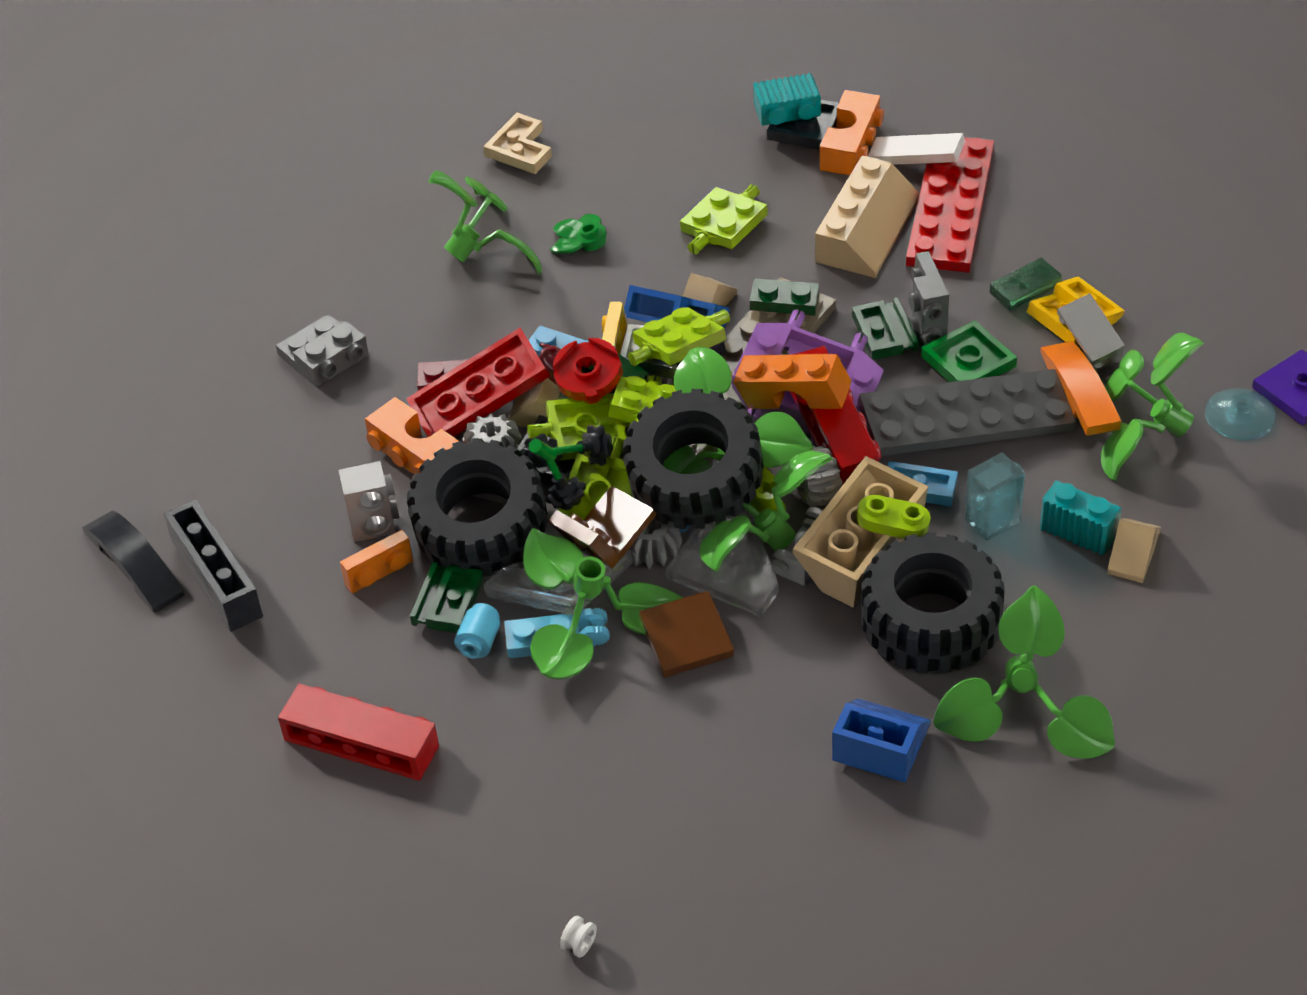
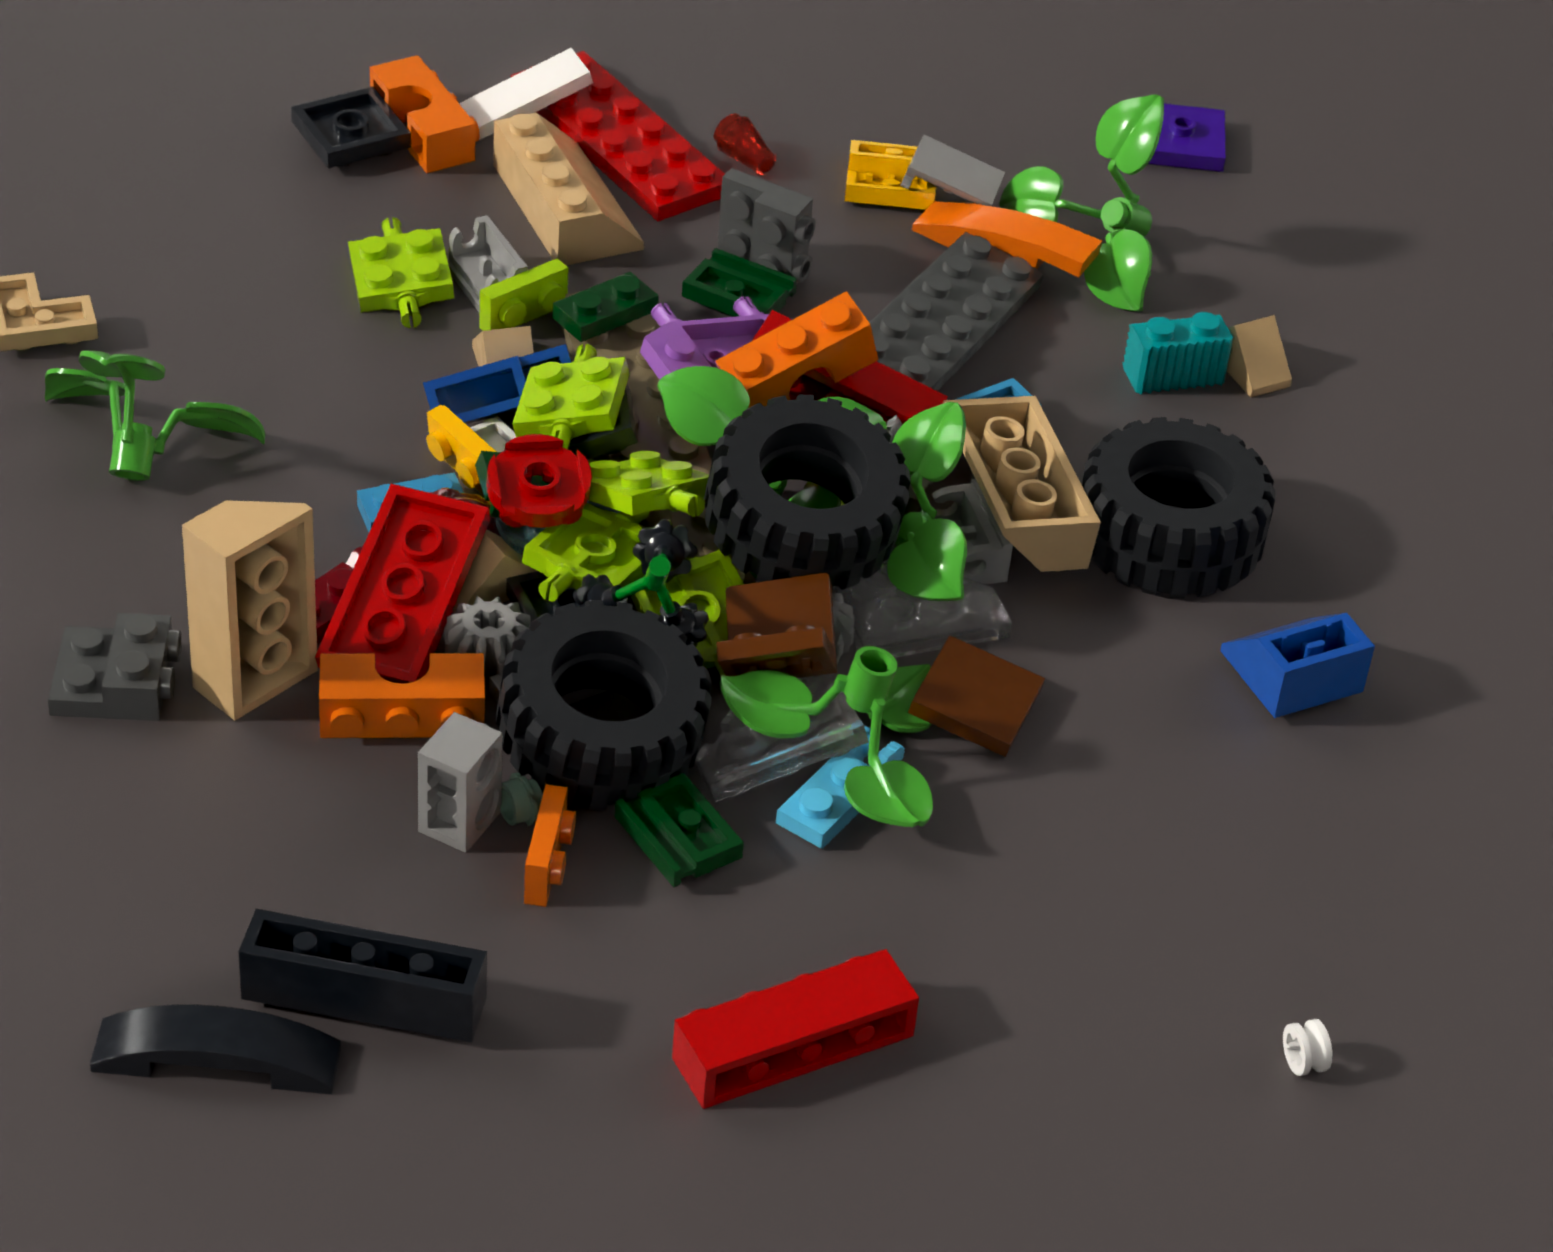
camera: 55 degrees left, 5 degrees down
(367, 346) = (250, 601): none -> tan slope
(397, 523) = (520, 800): none -> sand green plate
(477, 631) = (768, 837): medium azure brick -> none
(580, 233) = (255, 372): green plate -> none
(747, 265) = (523, 296): none -> lime plate
(764, 244) = (482, 260): none -> light grey hinge
(786, 99) = (322, 105): teal brick -> none
(893, 516) = (1054, 439): lime plate -> none
(969, 354) = (862, 264): green plate -> none
(994, 495) = (1093, 373): clear light blue brick -> none
(1008, 243) = (741, 141): none -> clear red cone
(1025, 283) = (815, 169): clear green plate -> none
(1027, 627) = (1357, 448): bright green plant -> none
(1240, 414) = (1165, 190): clear light blue dish -> none

